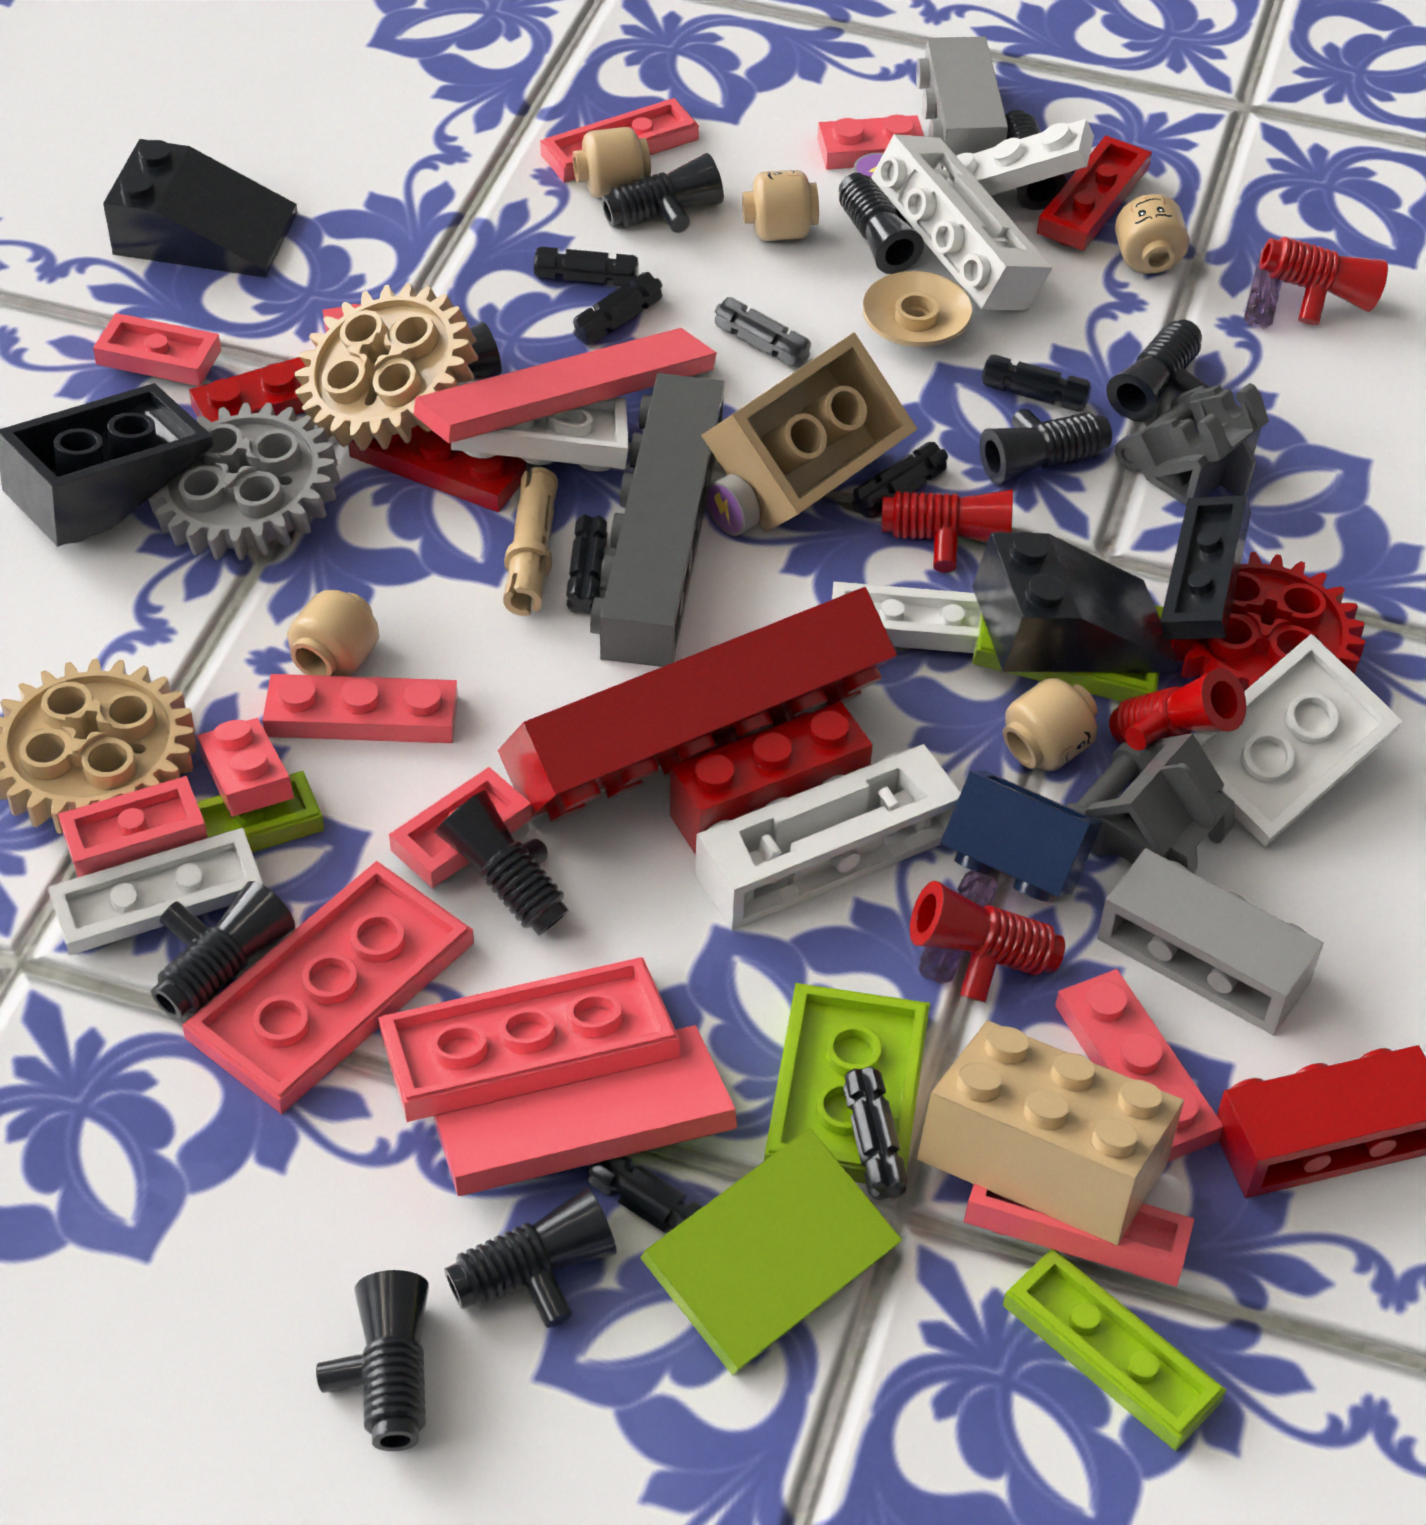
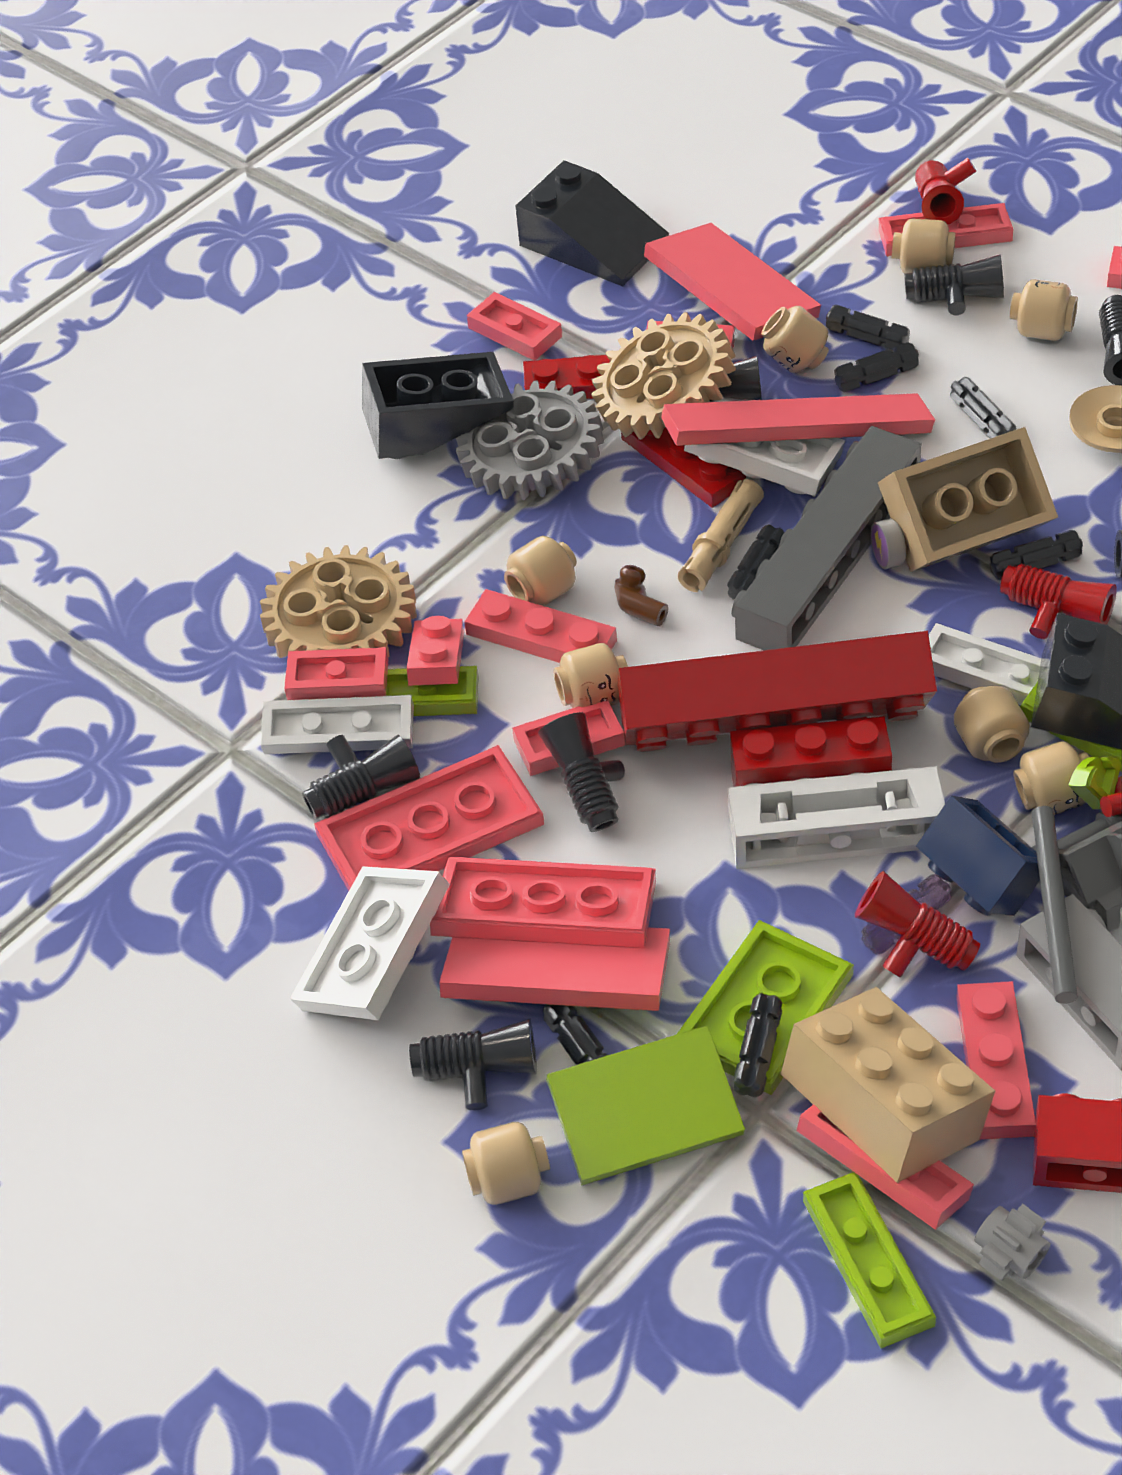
camera: 30 degrees right, 0 degrees up
(338, 1155) = (370, 942): none -> white plate
(391, 1363) = (347, 1096): black piece -> none
(401, 243) = (727, 277): none -> coral tile
(458, 640) = (633, 598): none -> reddish brown arm
(458, 746) = (589, 676): none -> tan head
(515, 294) = (795, 339): none -> tan head
(601, 94) = (938, 190): none -> red piece
(637, 1380) = (505, 1163): none -> tan head
(952, 680) = (991, 724): none -> tan head
(1106, 713) = (1095, 779): none -> lime tile
(1139, 866) = (1054, 905): none -> dark grey bar
(1271, 1272) = (1012, 1242): none -> light grey gear

